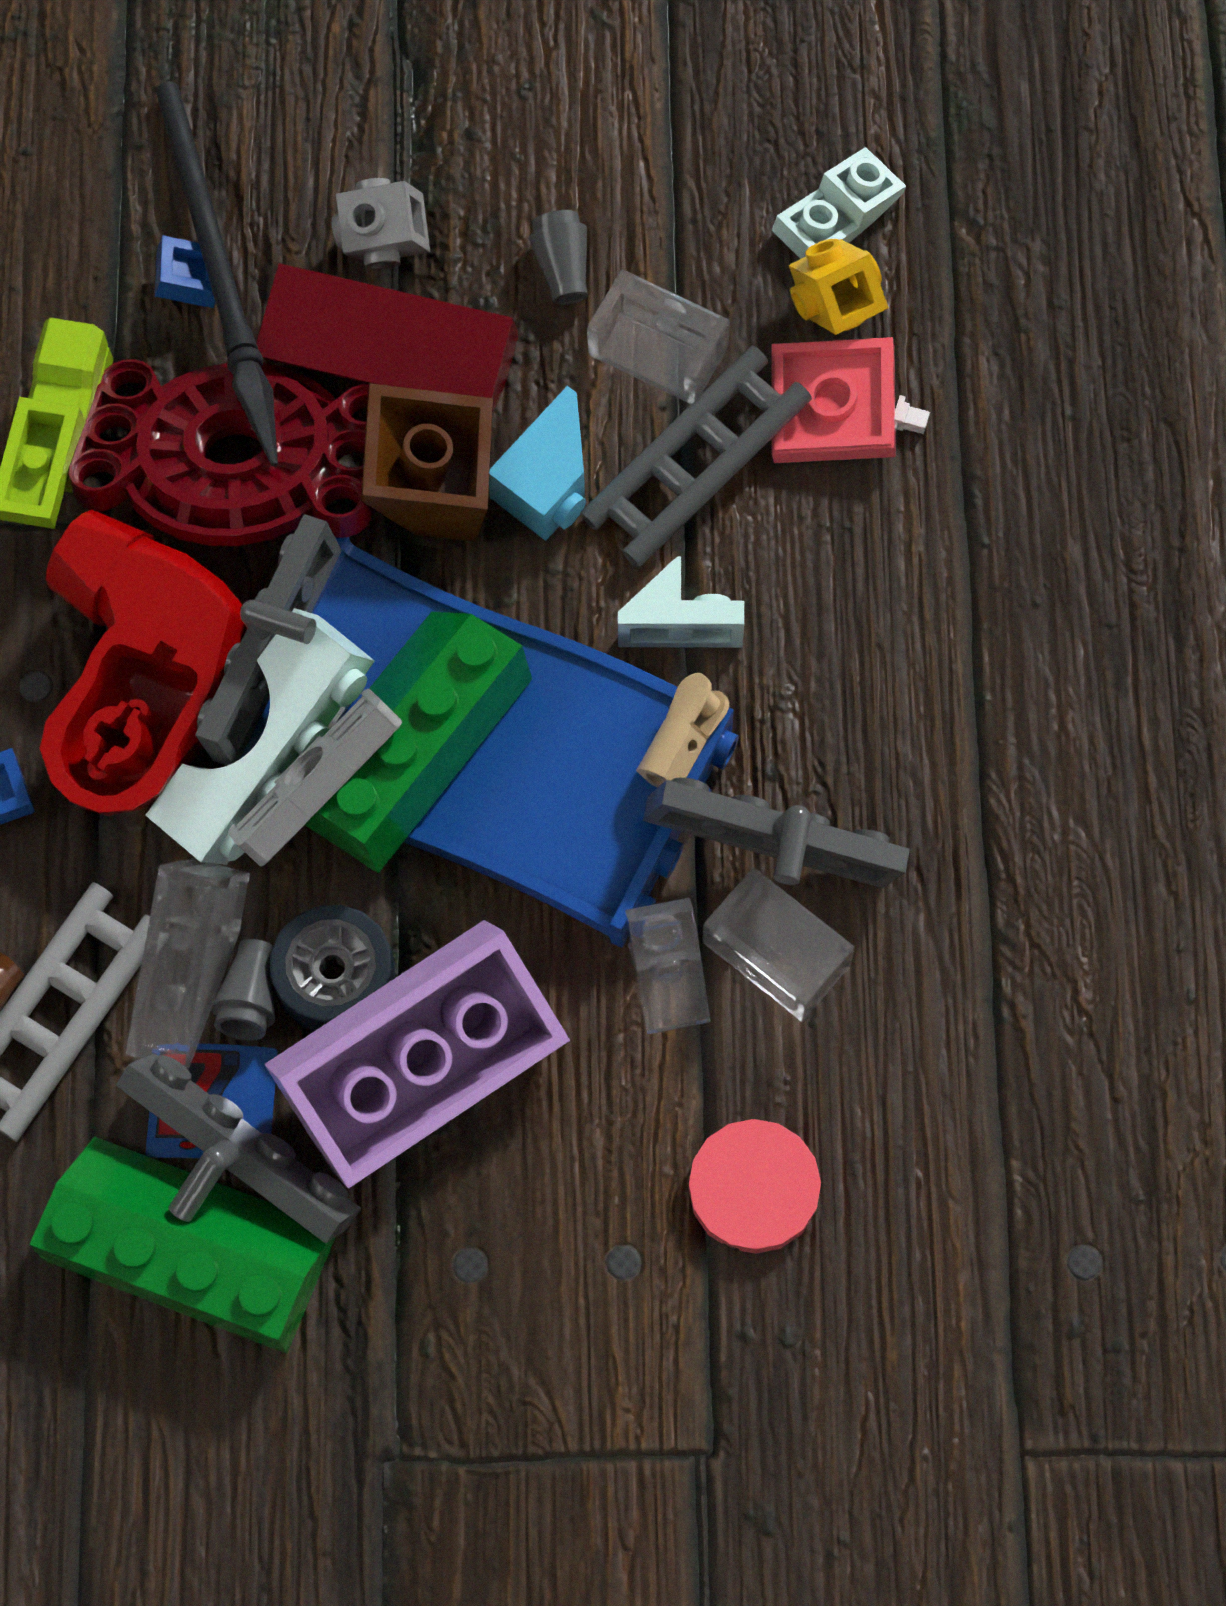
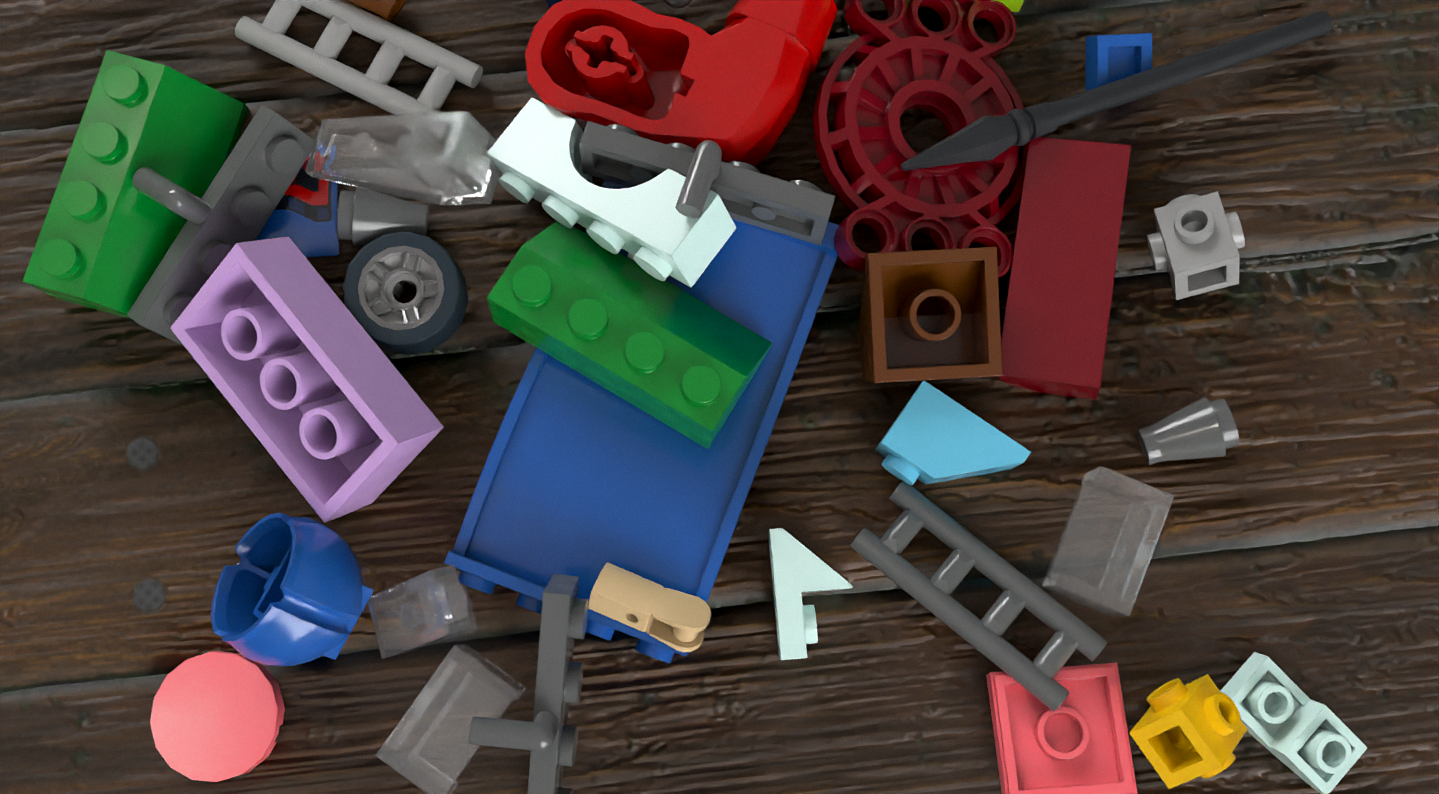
camera: 85 degrees right, 10 degrees up
(315, 778) = (556, 243): light grey piece -> none
(620, 1103) = (289, 593): none -> blue piece

